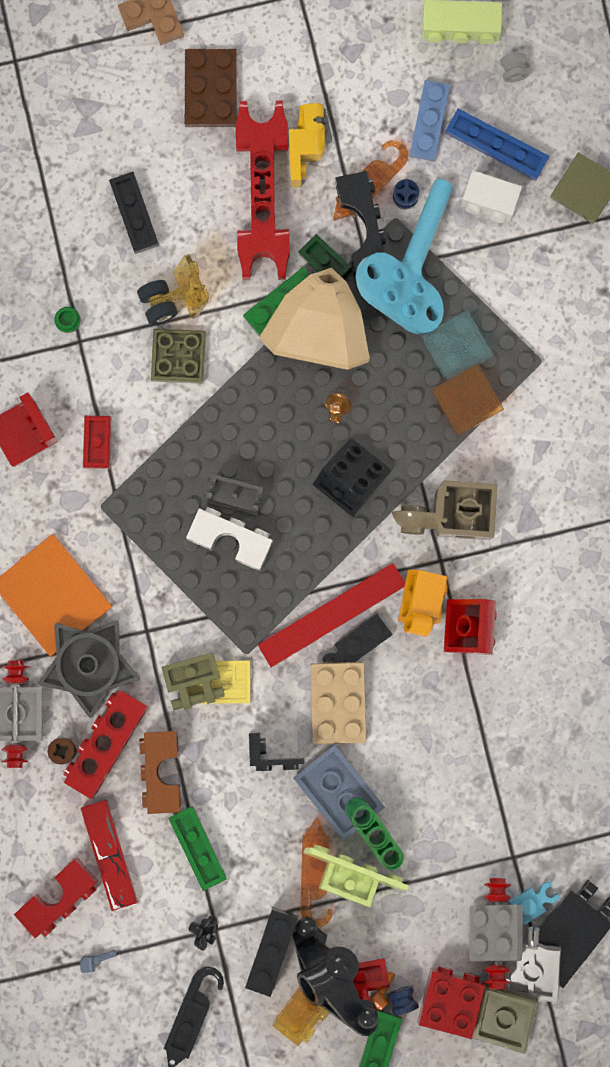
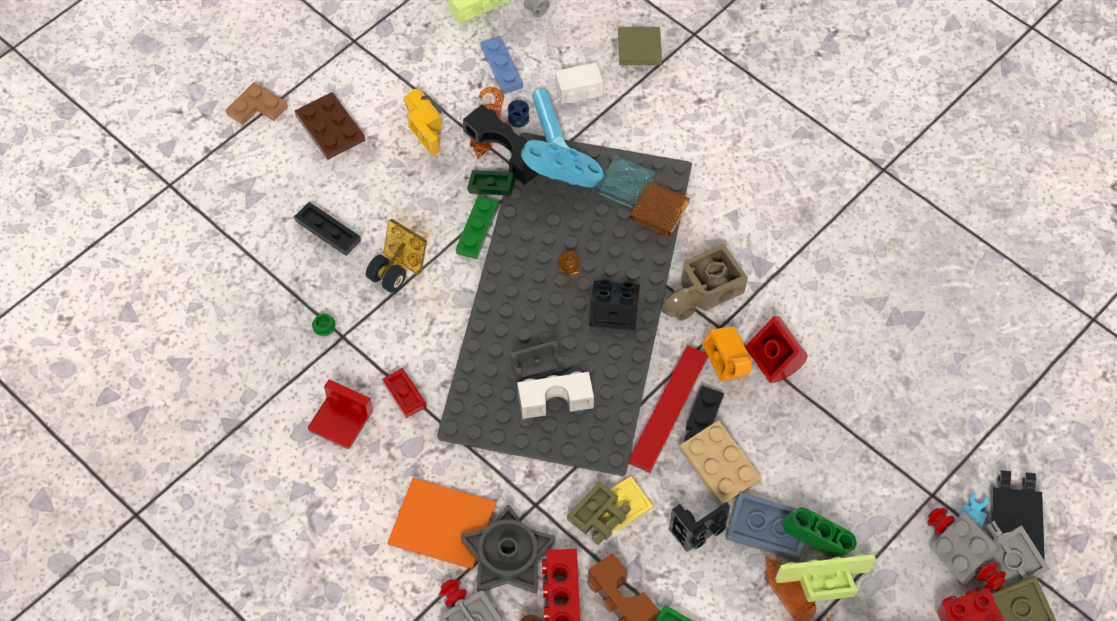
camera: 35 degrees left, 25 degrees down
(178, 356) = (425, 303): olive tile -> none
(261, 142) = (434, 191): red piece -> none
(319, 324) = (517, 215): tan brick -> none
(496, 144) = (559, 52): blue plate -> none

